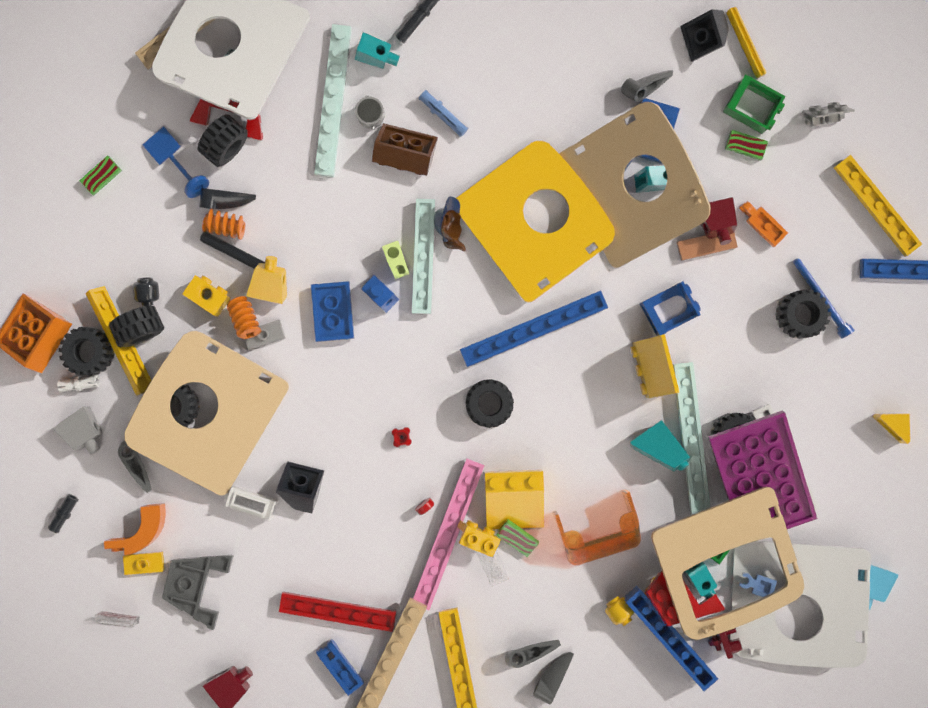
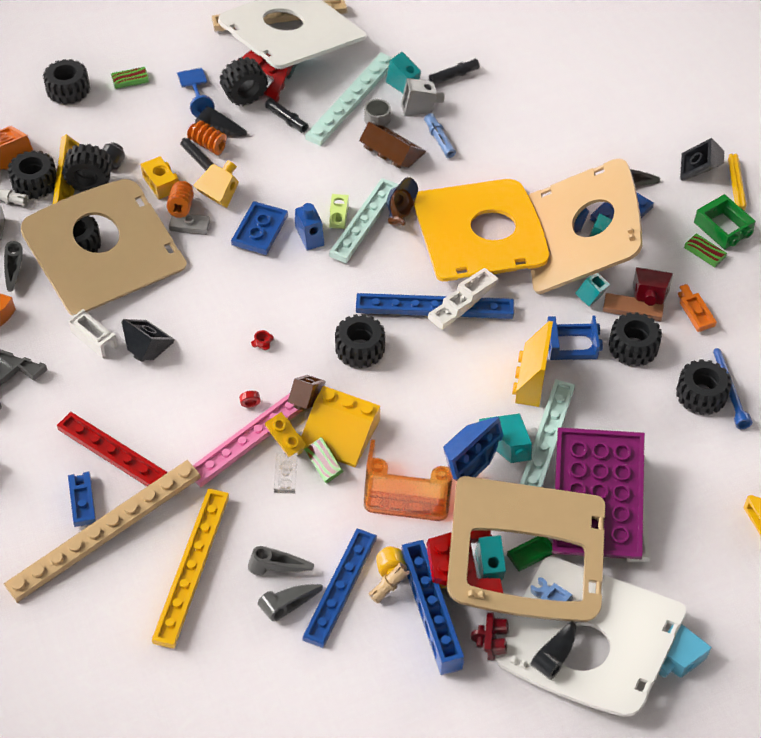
camera: 25 degrees right, 35 degrees down
(29, 212) = (66, 81): none -> black tyre
(290, 159) = (291, 119): none -> black pin
(404, 75) = (420, 97): none -> light grey torso
(473, 483) = (305, 391): none -> reddish brown slope
(559, 315) = (461, 300): none -> white slope
(587, 646) = (339, 588): none -> blue tile
(628, 633) = (389, 583): none -> tan pin
(643, 493) = (473, 448): none -> blue wedge
(669, 251) = (592, 289): none -> teal brick
(740, 282) = (637, 327): none -> black tyre
(783, 639) = (555, 651): none -> black piece

